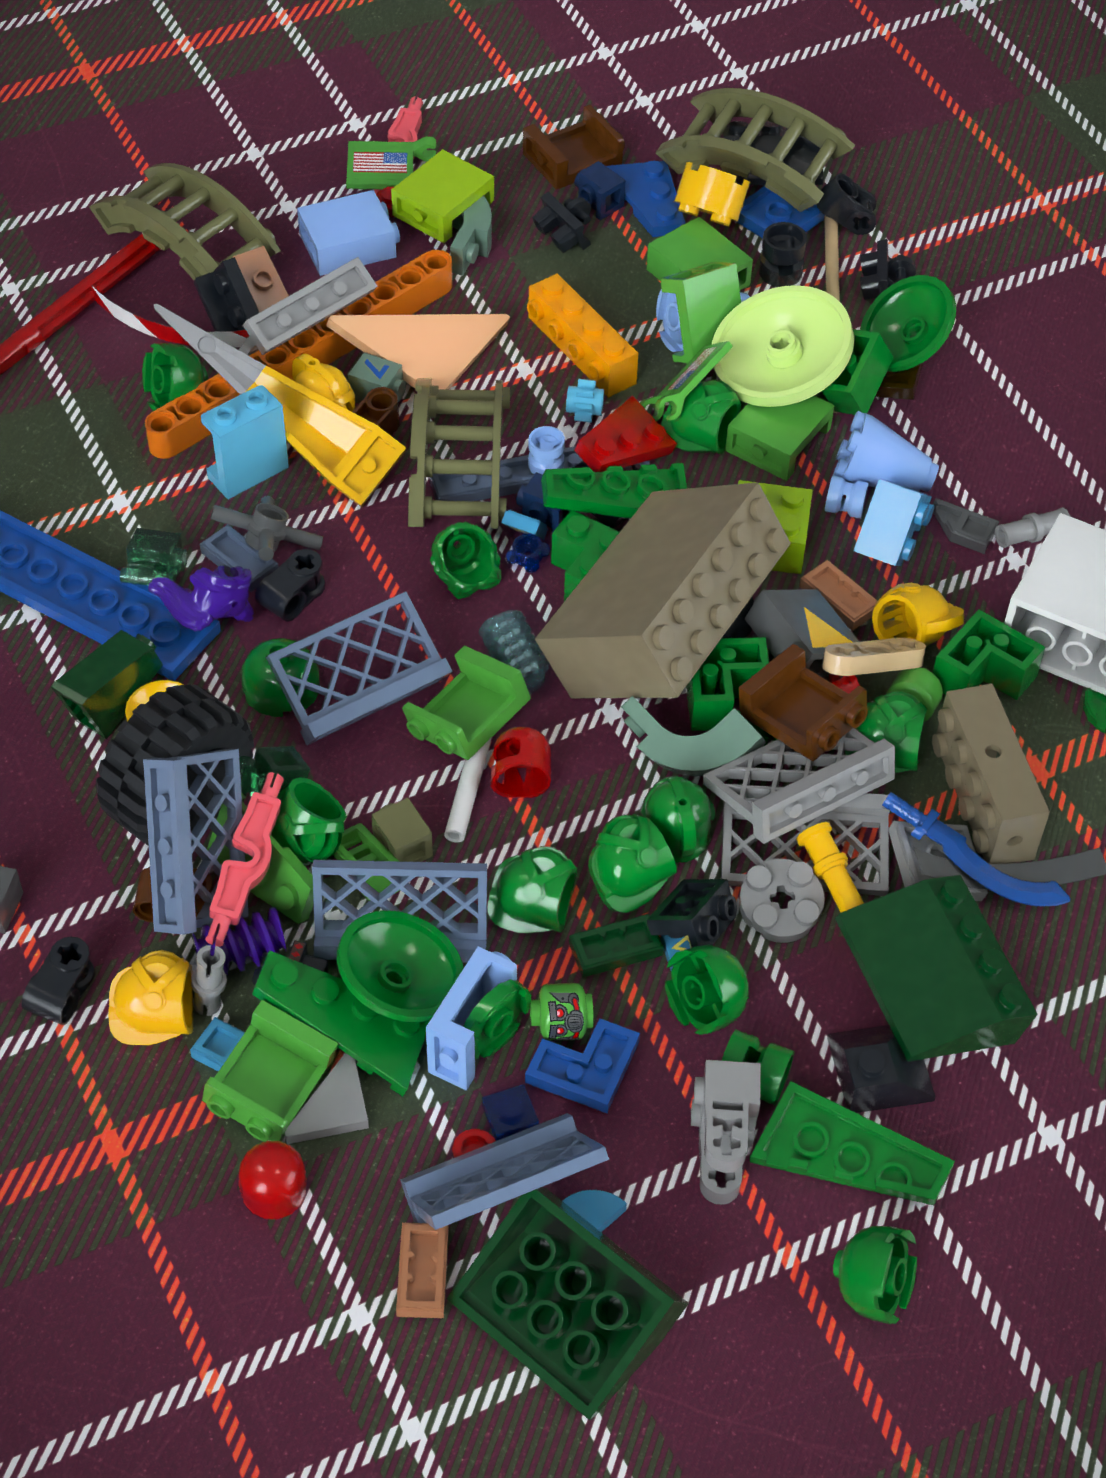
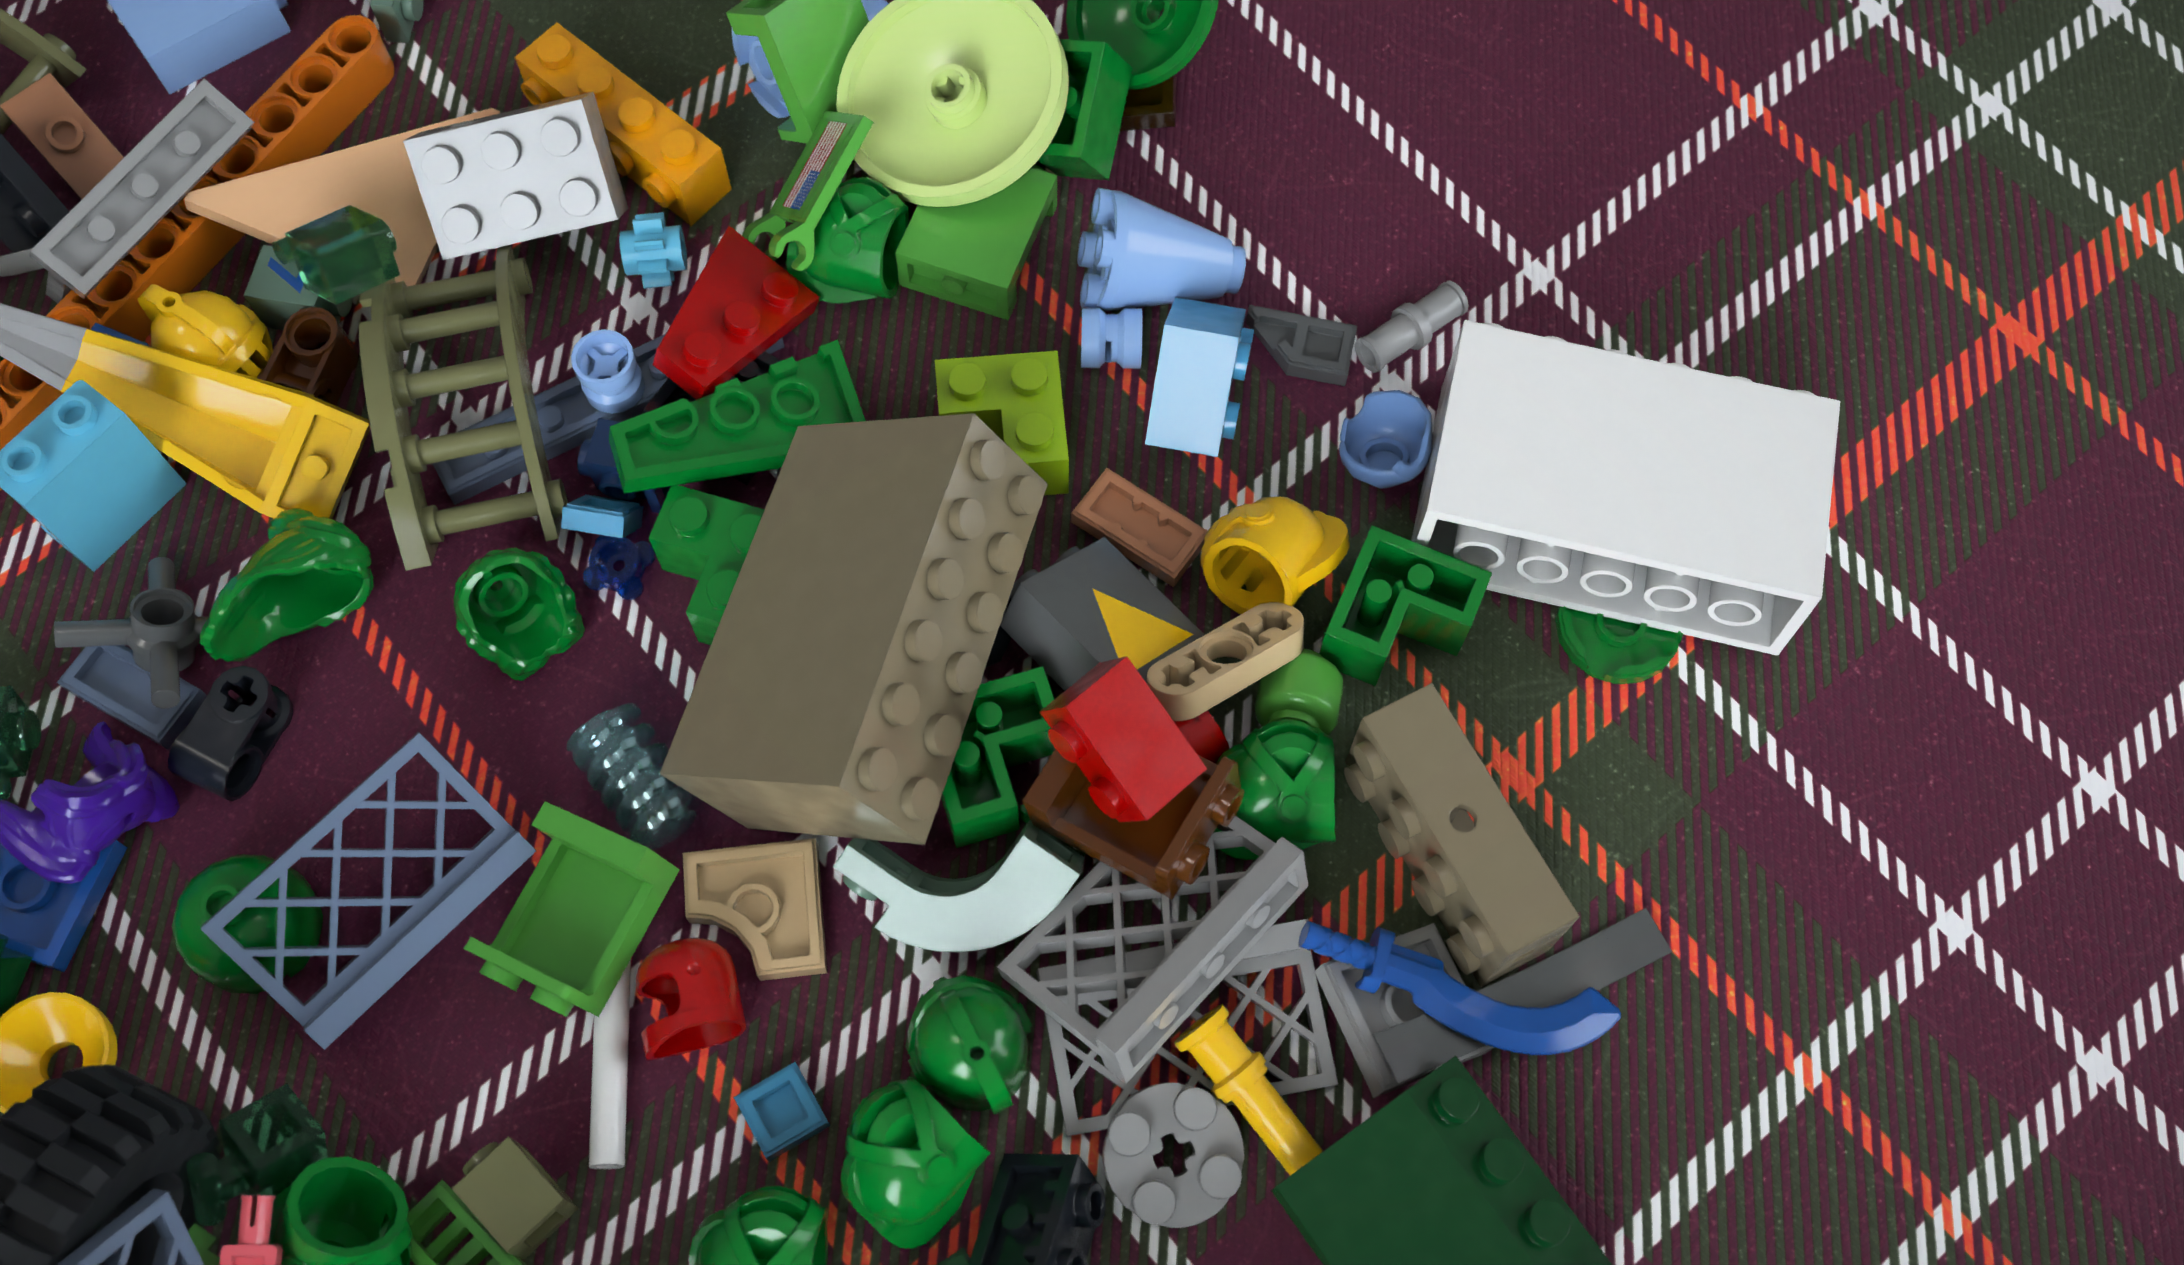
camera: 15 degrees left, 15 degrees up
(344, 519) = (294, 582): none -> green hair
(409, 360) = (341, 253): none -> clear green brick
(518, 343) = (517, 175): none -> brick
(560, 831) = (781, 1111): none -> dark azure tile
(574, 732) = (766, 899): none -> tan tile
(803, 664) = (1122, 741): none -> red brick
(999, 578) = (1387, 439): none -> medium blue hair

